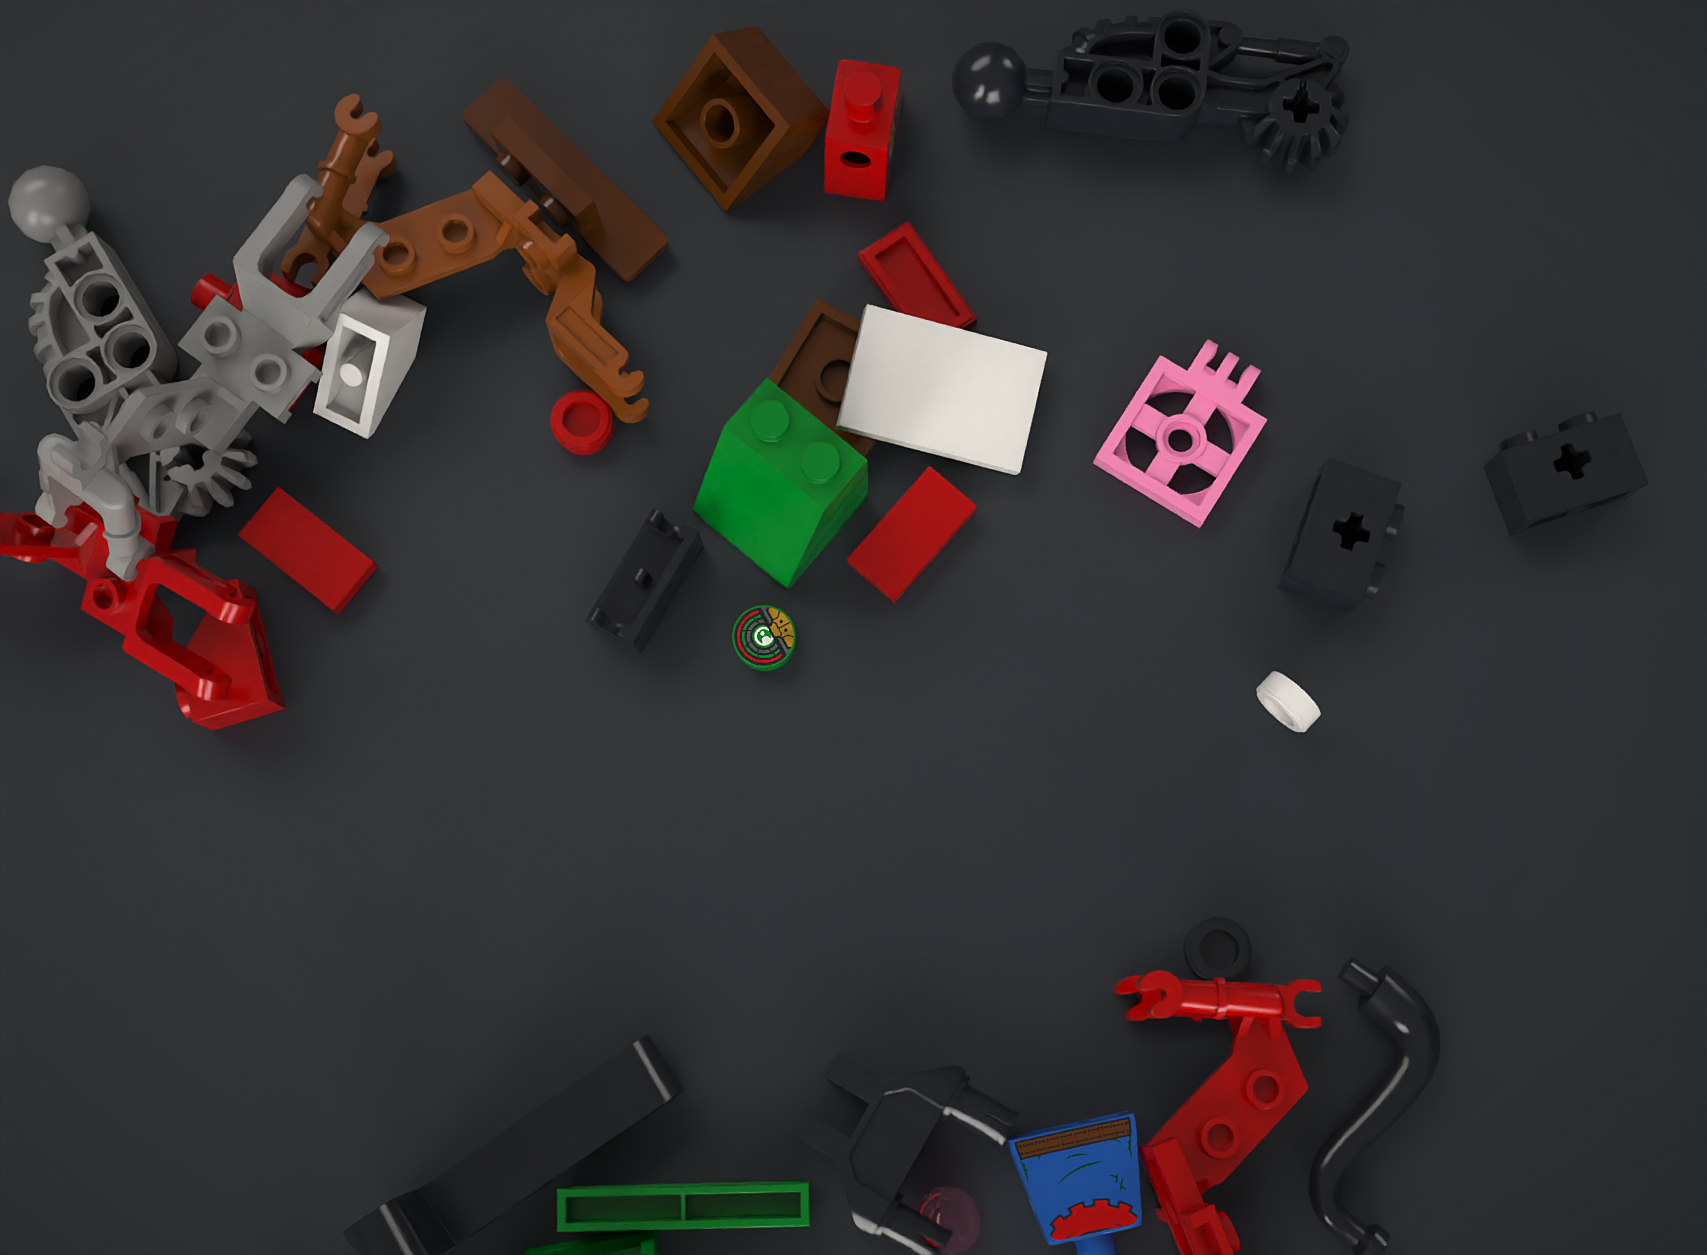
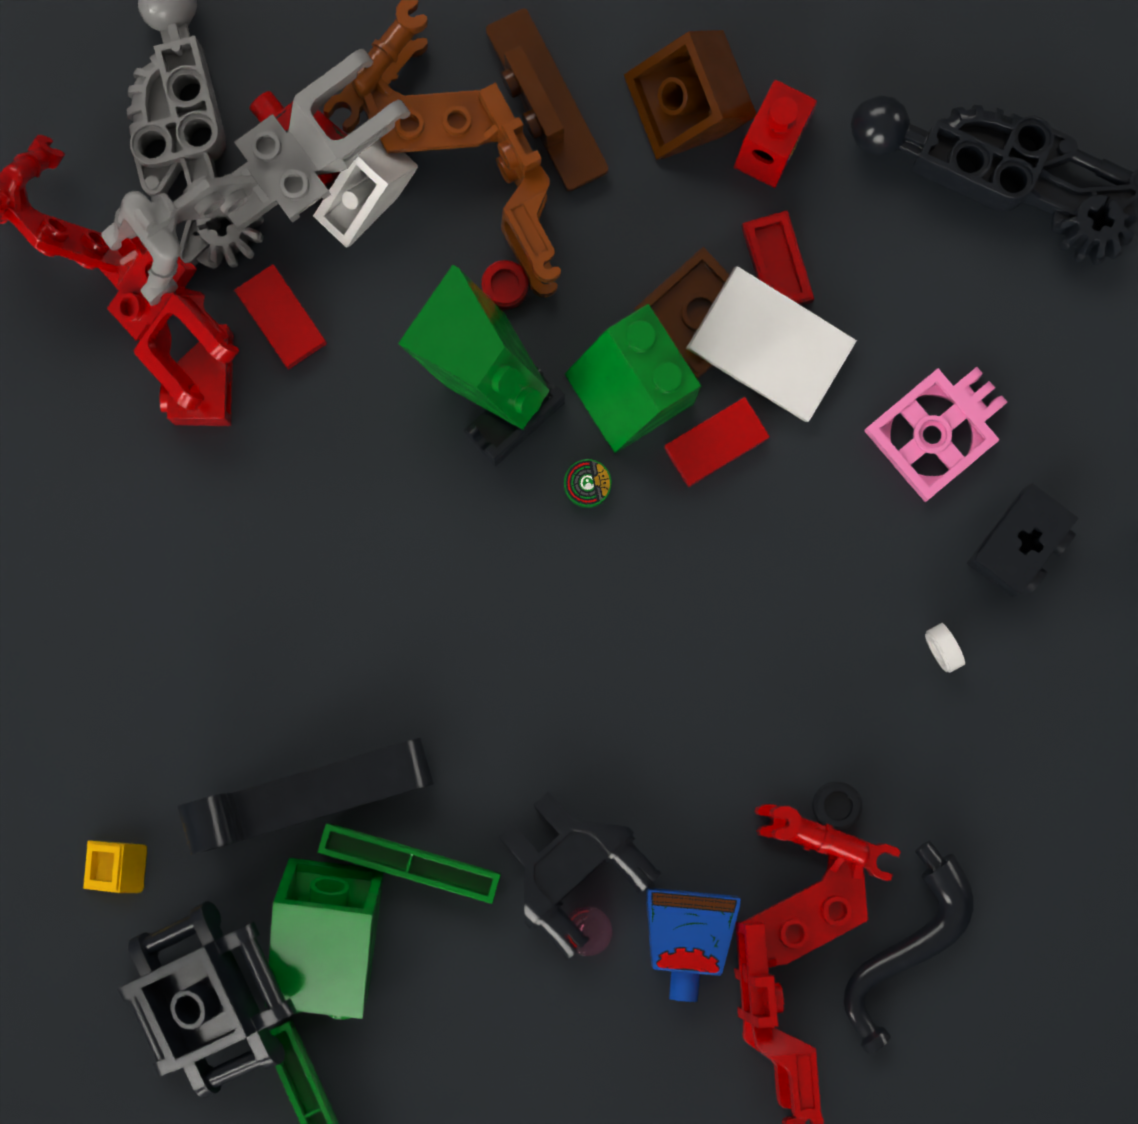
camera: 10 degrees right, 5 degrees up
(565, 511) = (475, 350): none -> green slope

